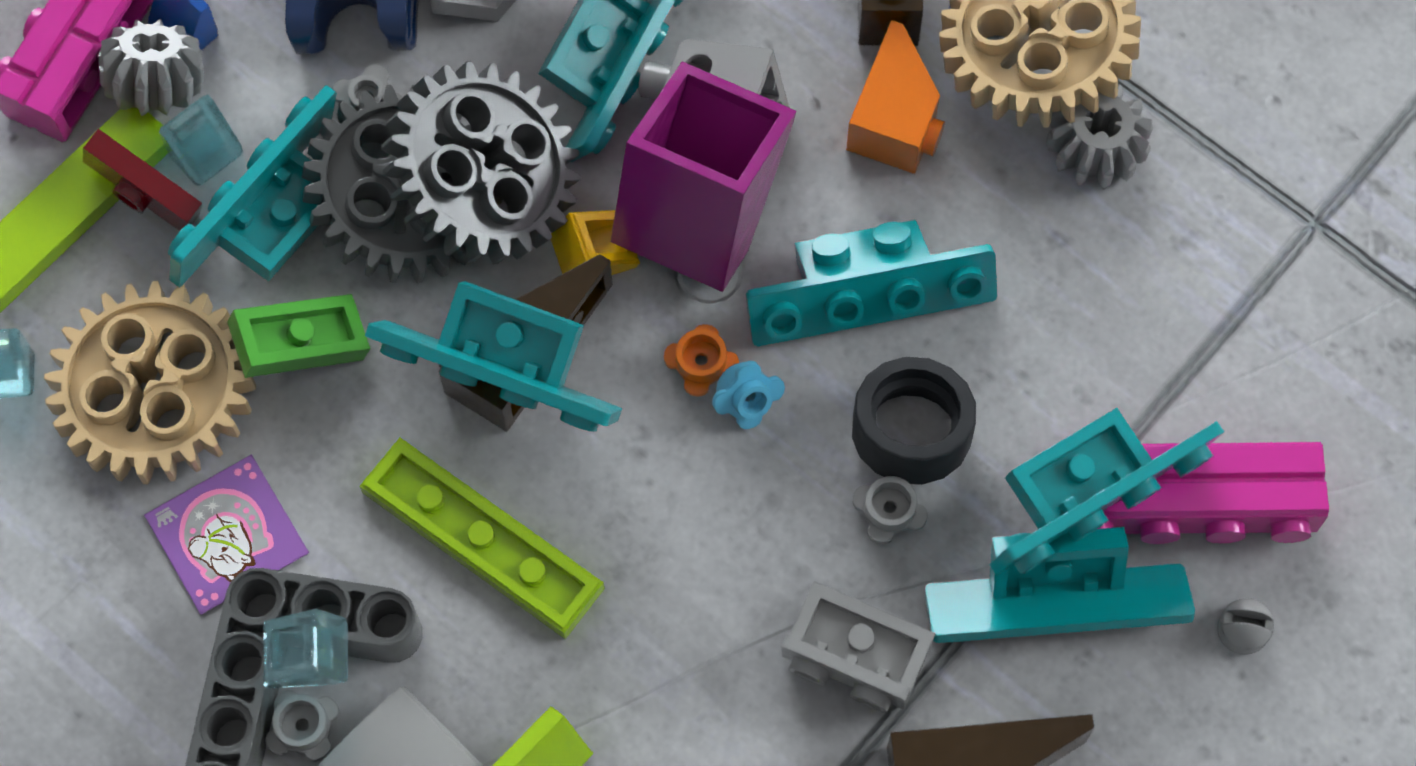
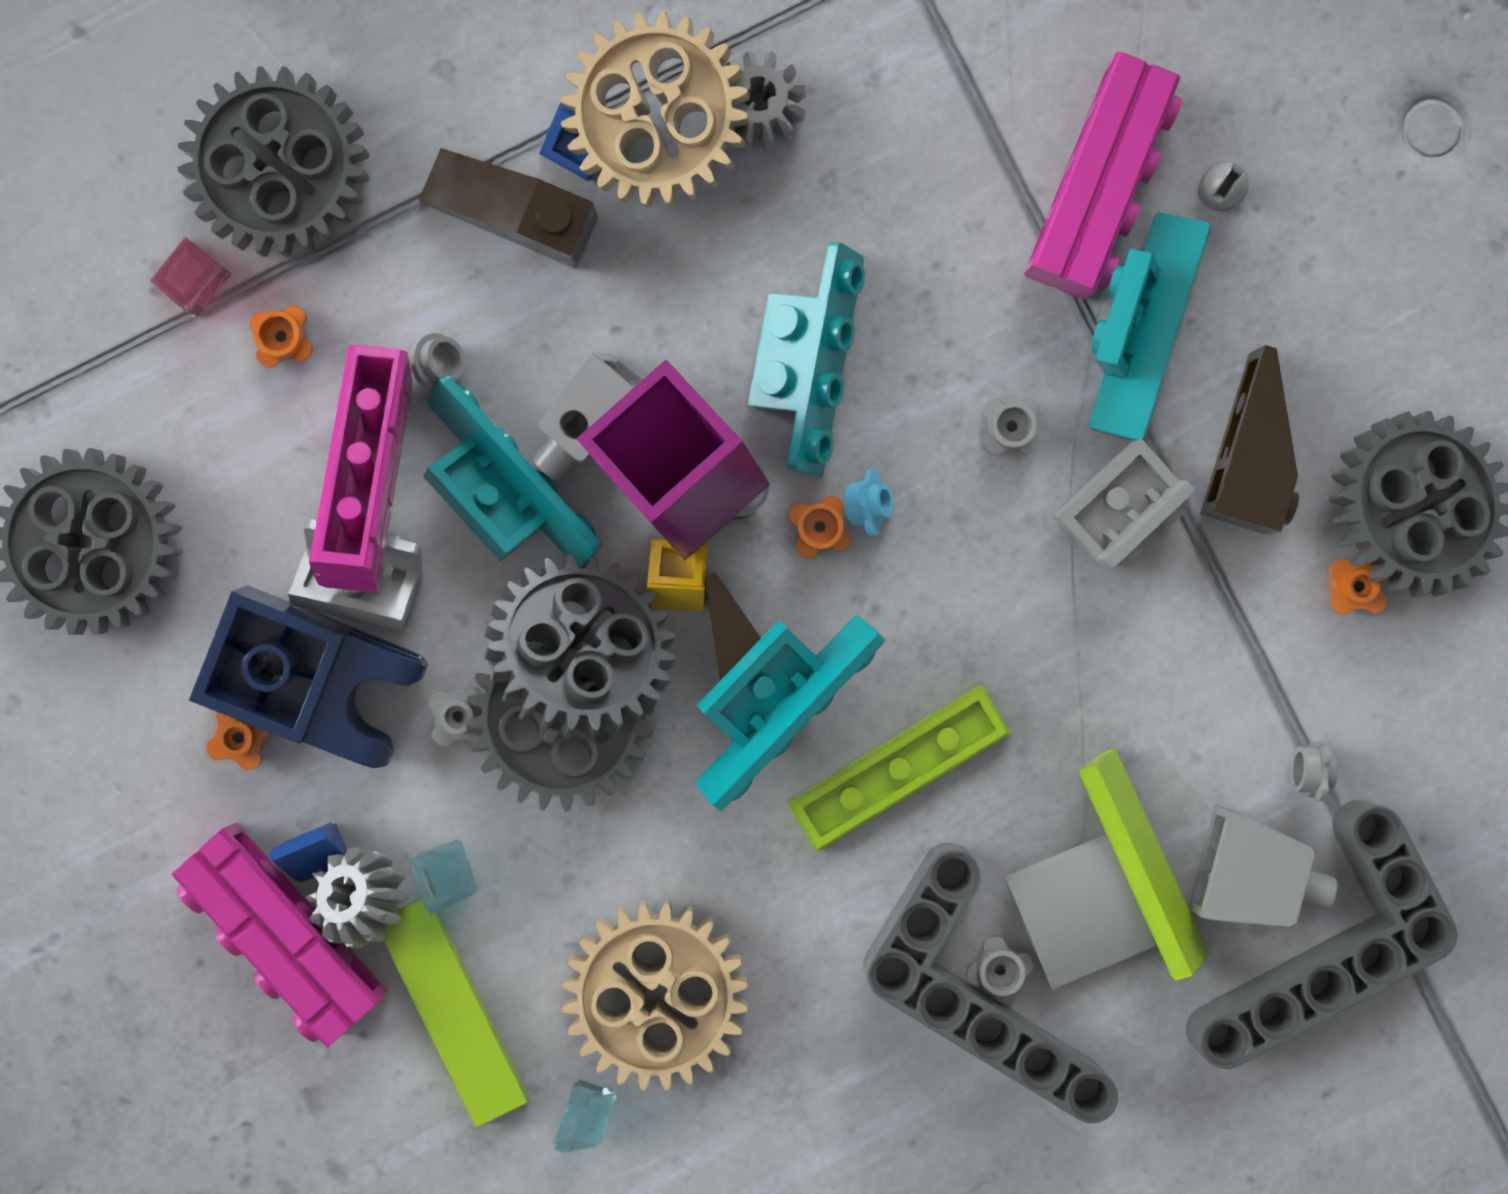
camera: 70 degrees left, 20 degrees up
(139, 183) = (472, 946): dark red plate -> none
(223, 530) = (807, 973): sticker -> none
(263, 213) = (544, 844): teal bracket -> none
(298, 335) = (666, 857): bright green plate -> none
(305, 650) = (961, 952): clear light blue slope -> none
(896, 107) = (659, 261): orange slope -> none
(922, 379) = (957, 332): black tyre -> none
(1085, 475) = (1091, 259): teal bracket -> none

